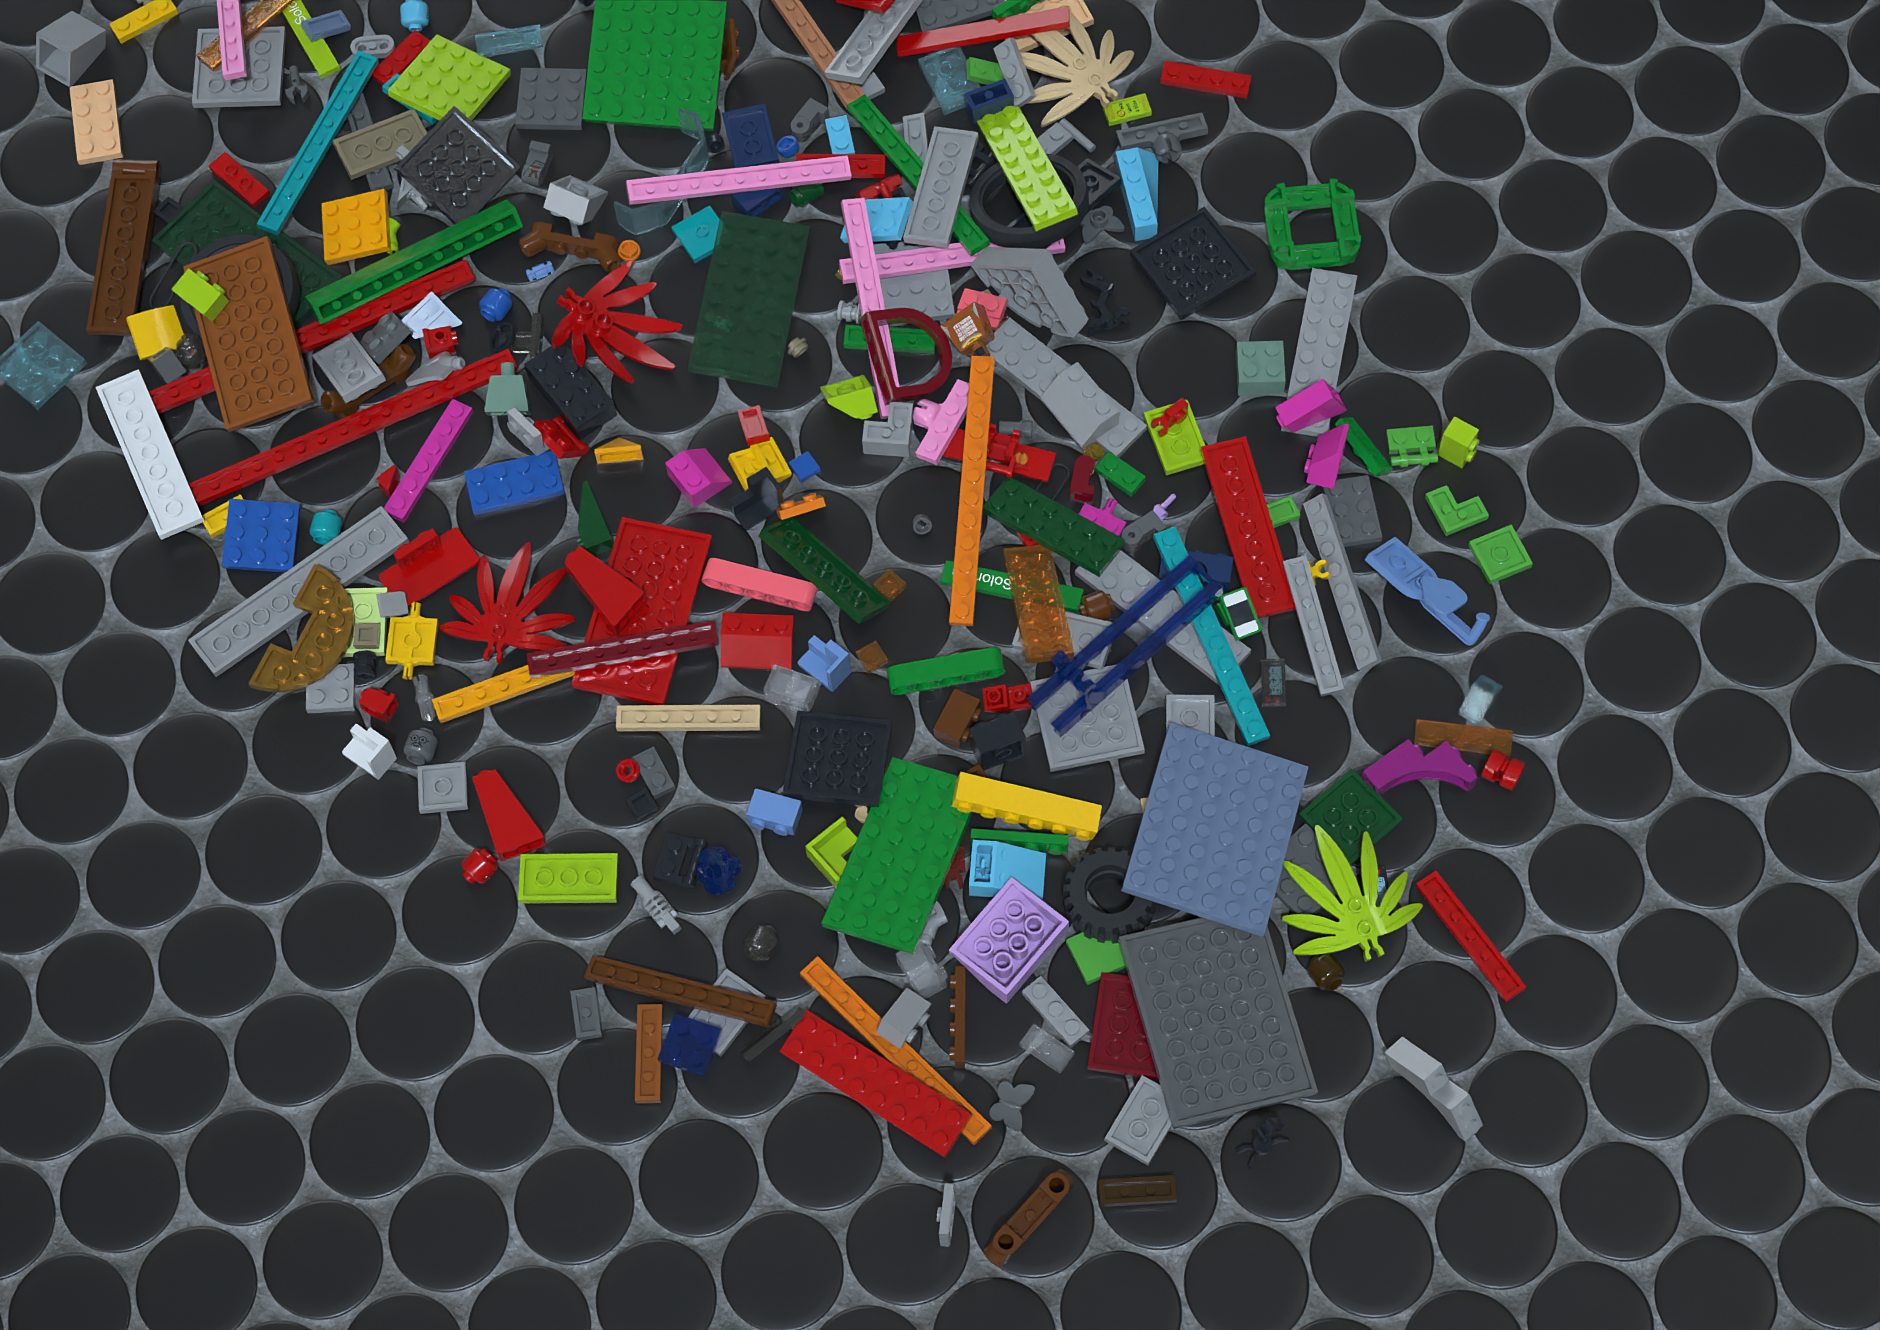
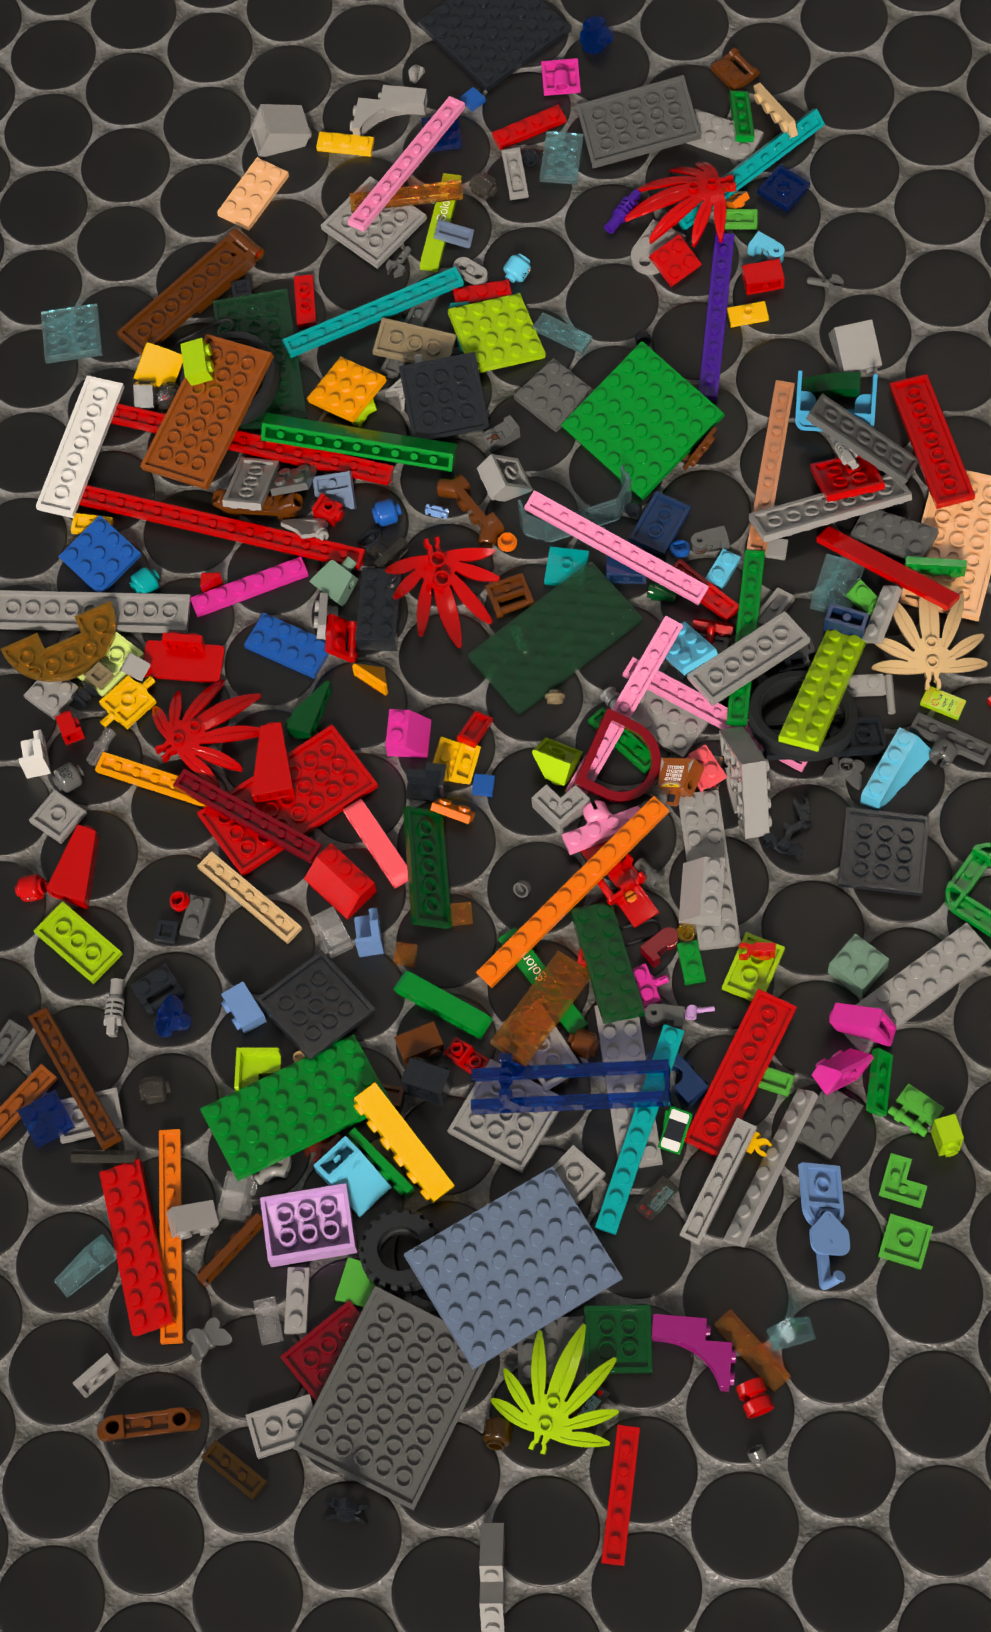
camera: 45 degrees right, 0 degrees up
(669, 289) = (506, 590): none -> reddish brown plate
(845, 1137) = (86, 1265): none -> clear light blue slope
(1544, 813) = (756, 1453): none -> dark grey hinge

